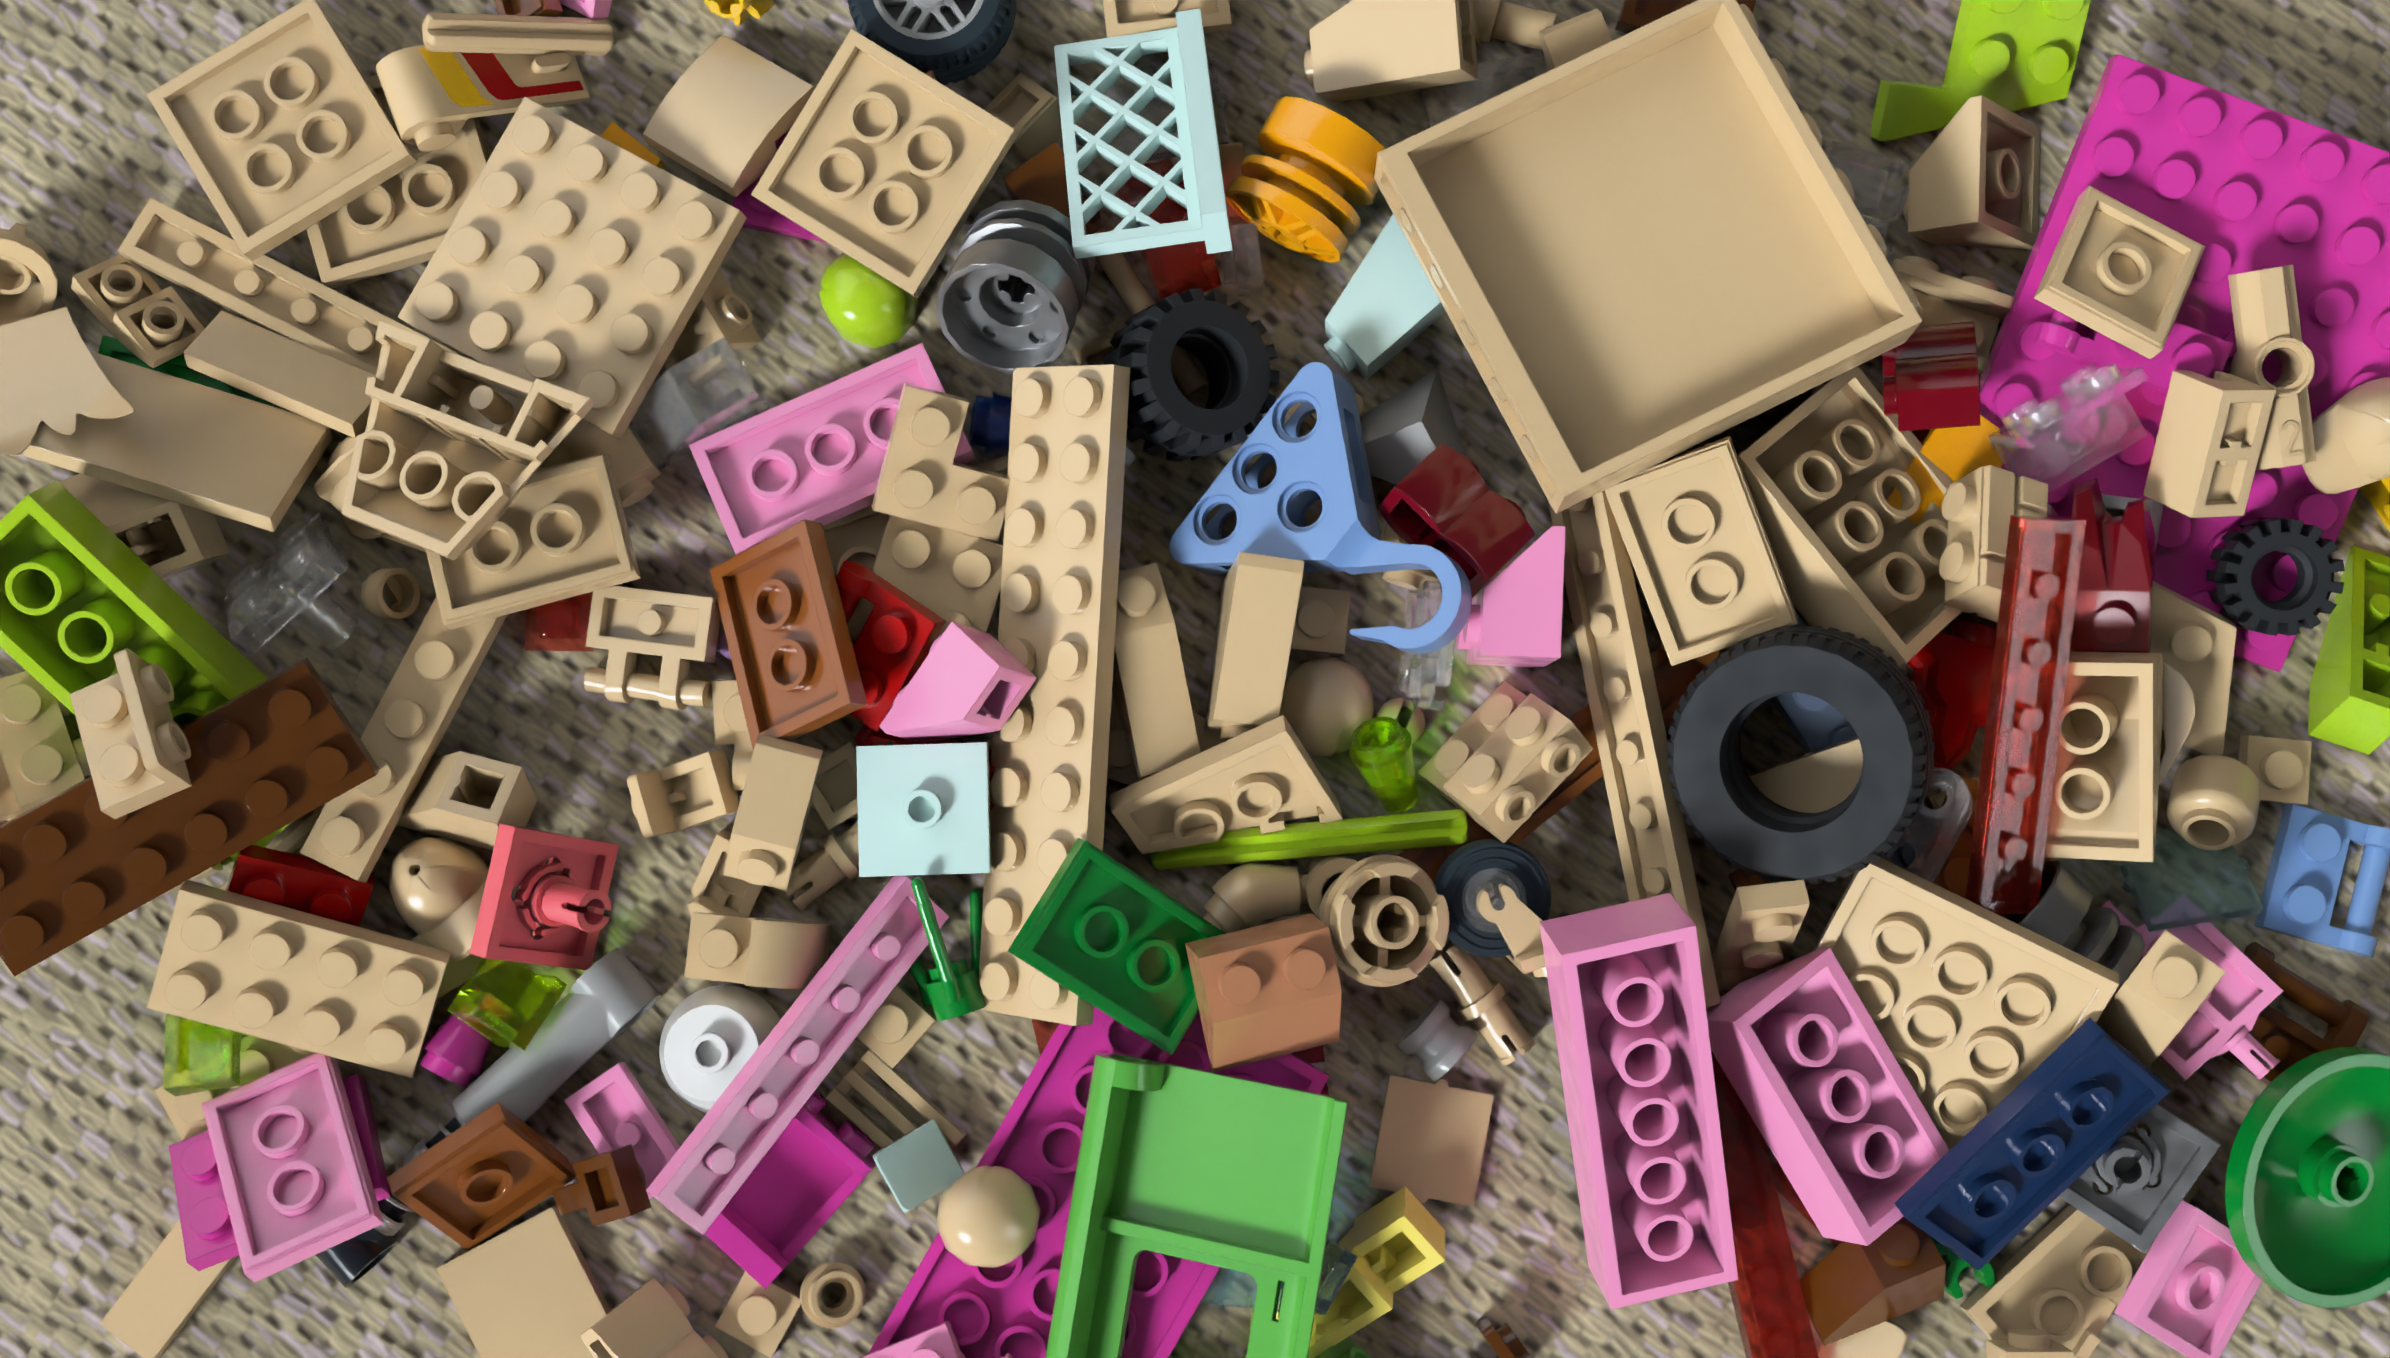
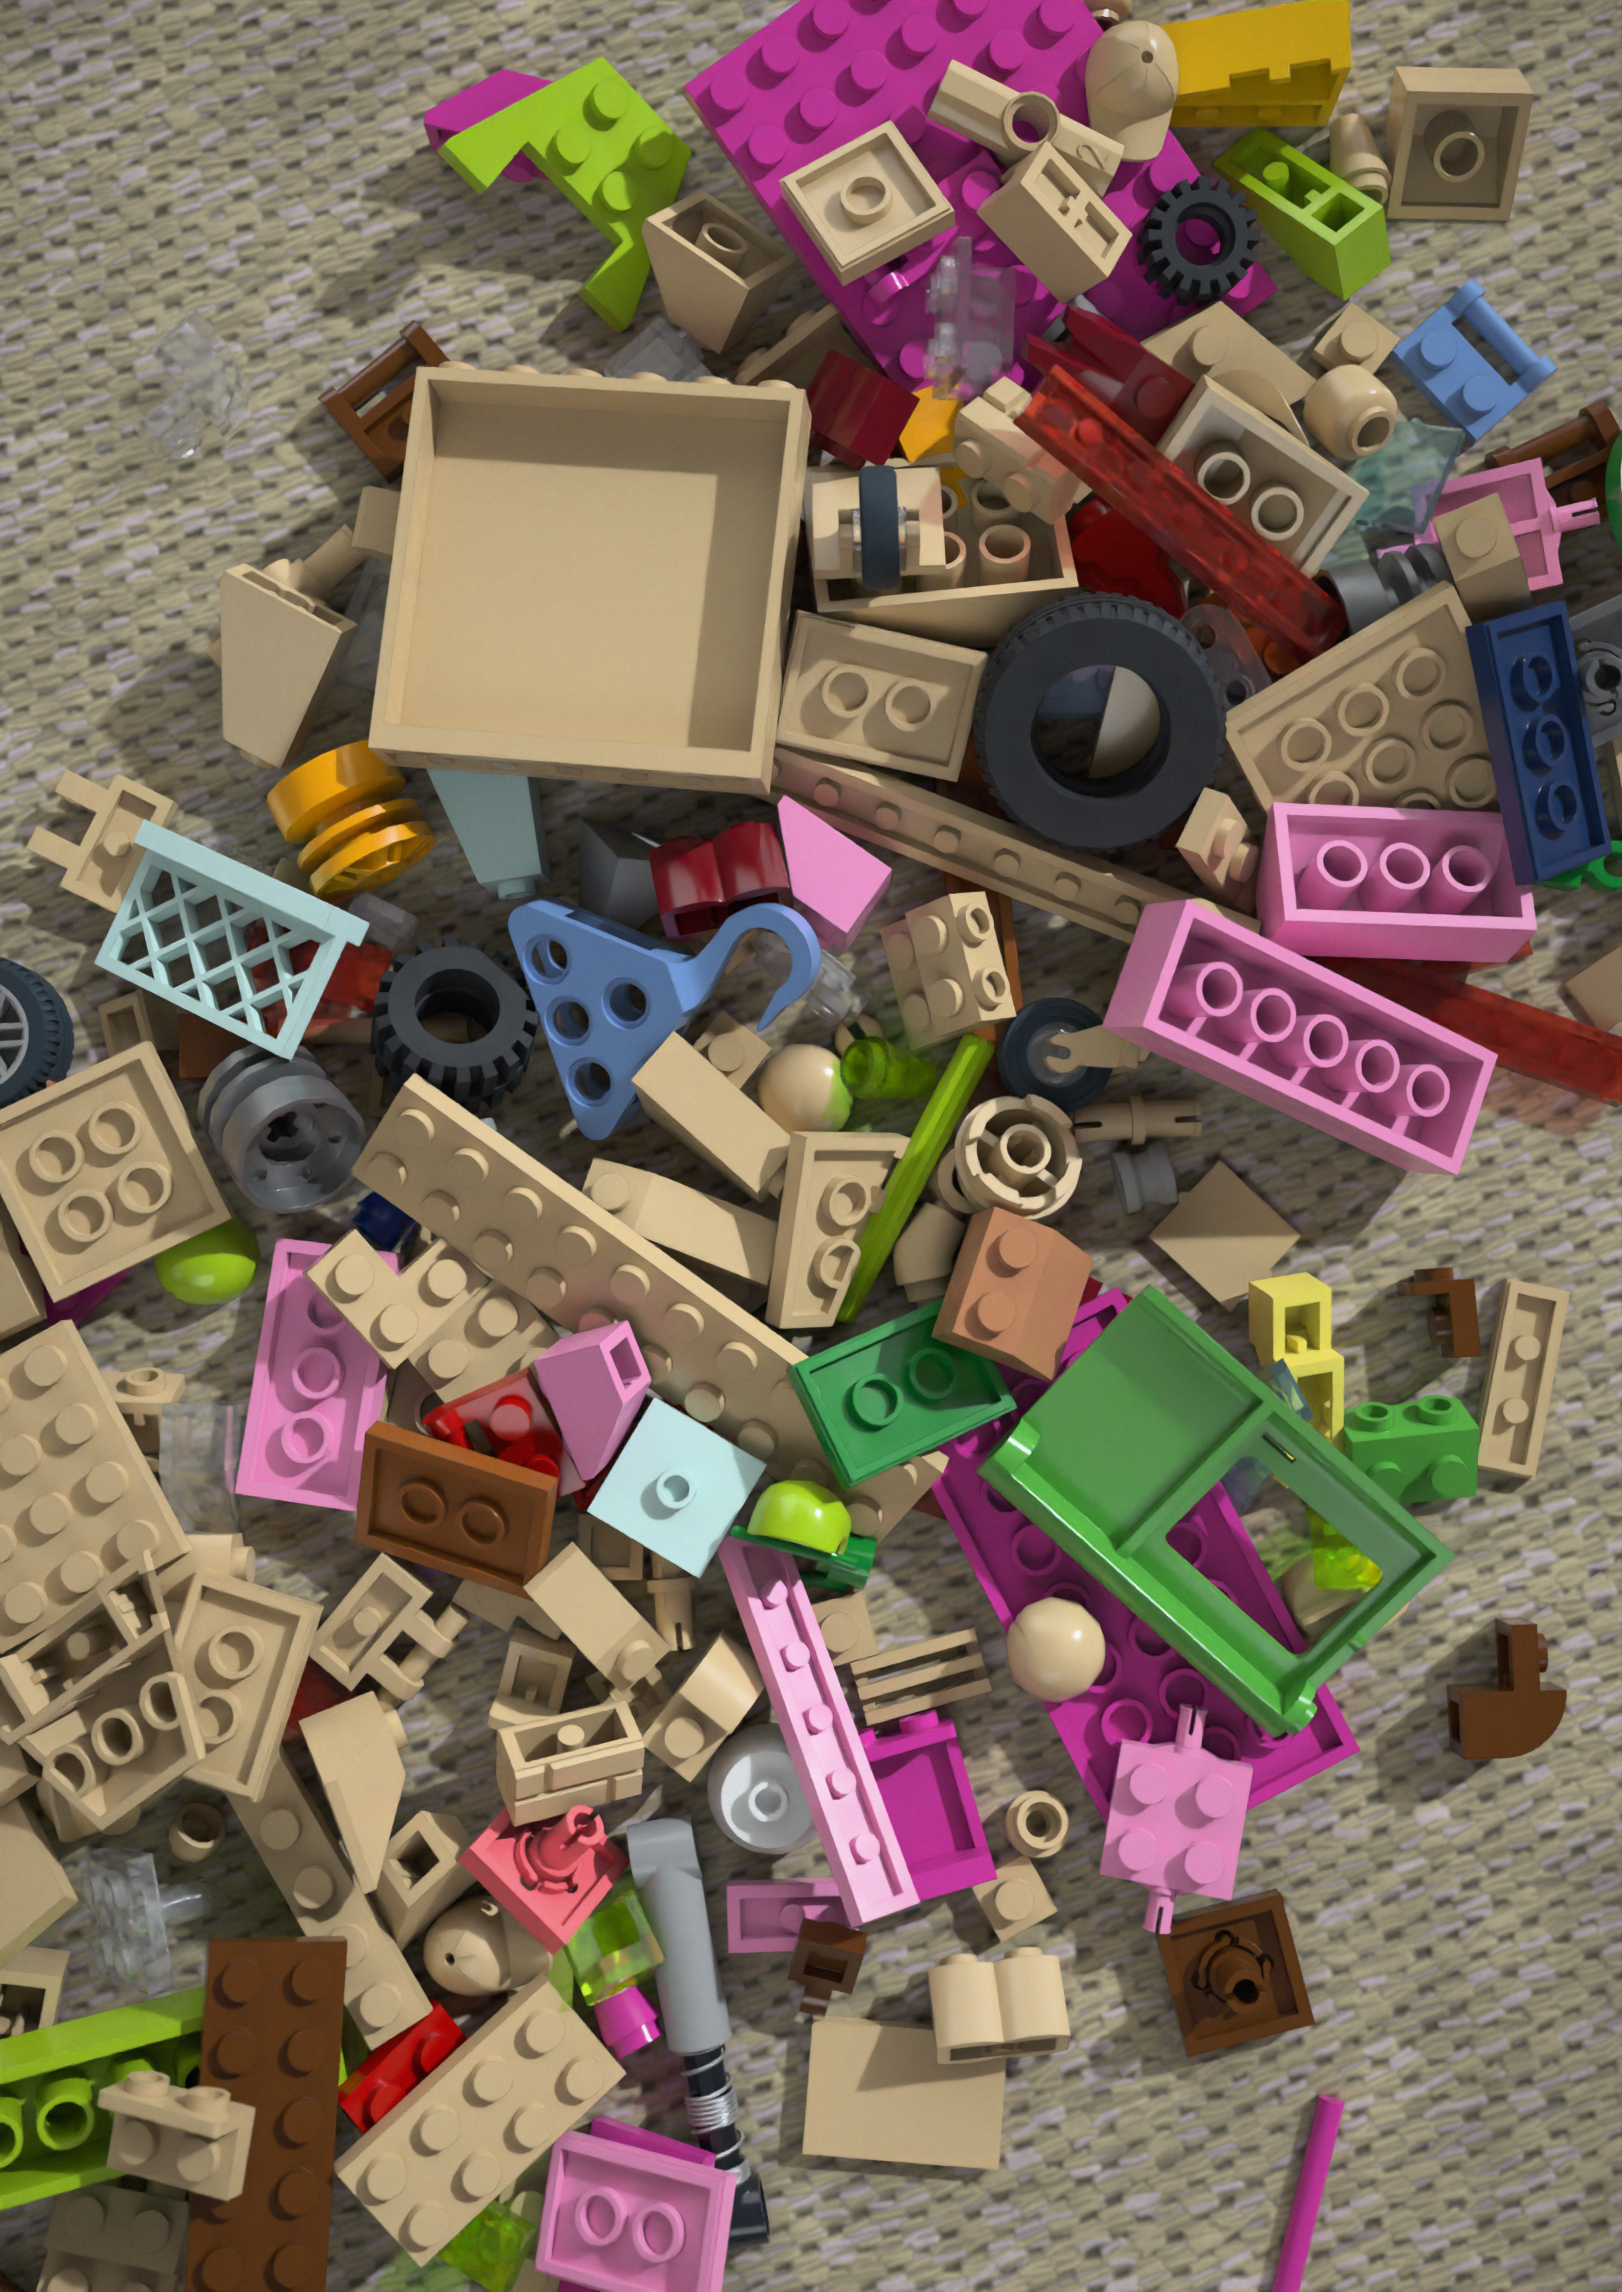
camera: 50 degrees left, 0 degrees up
(481, 1176) = (749, 2064): dark orange plate -> none
(519, 698) = (360, 1776): none -> tan slope
(639, 865) = (569, 1761): none -> tan brick
(918, 1165) = (975, 1682): light aqua slope -> none
(966, 930) = (803, 1515): none -> lime hair
(1847, 458) = (877, 524): none -> tan plate
(1873, 1283) = (1570, 948): reddish brown slope -> none

